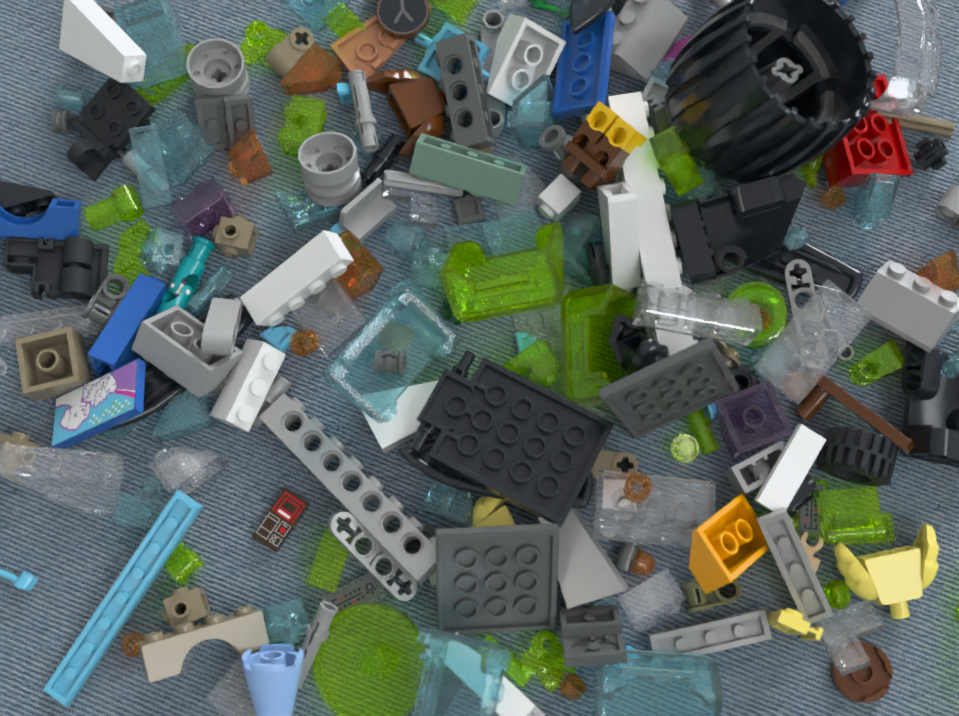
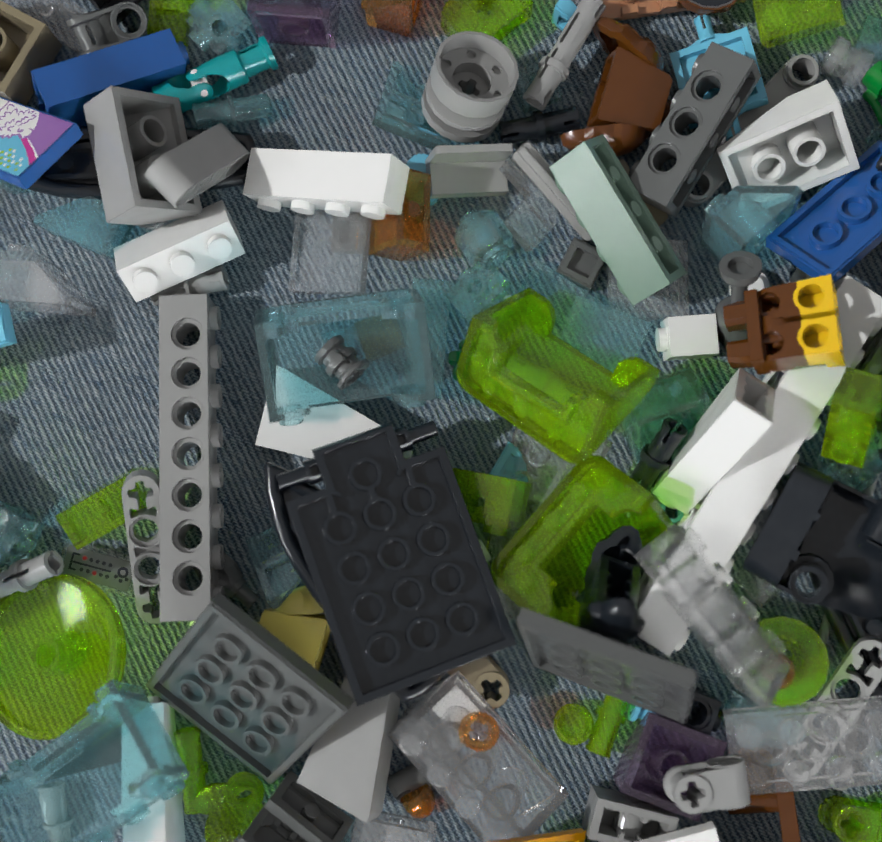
camera: 40 degrees right, 10 degrees up
(235, 236) = (305, 75): dark tan brick -> none
(278, 337) = (261, 227): medium azure tile -> none
(281, 520) = (95, 422): dark brown tile -> none
(299, 337) = (279, 256): clear orange bush -> none
(729, 355) = (708, 673): dark tan plate -> none
(780, 404) = (716, 785): none -> light grey piece

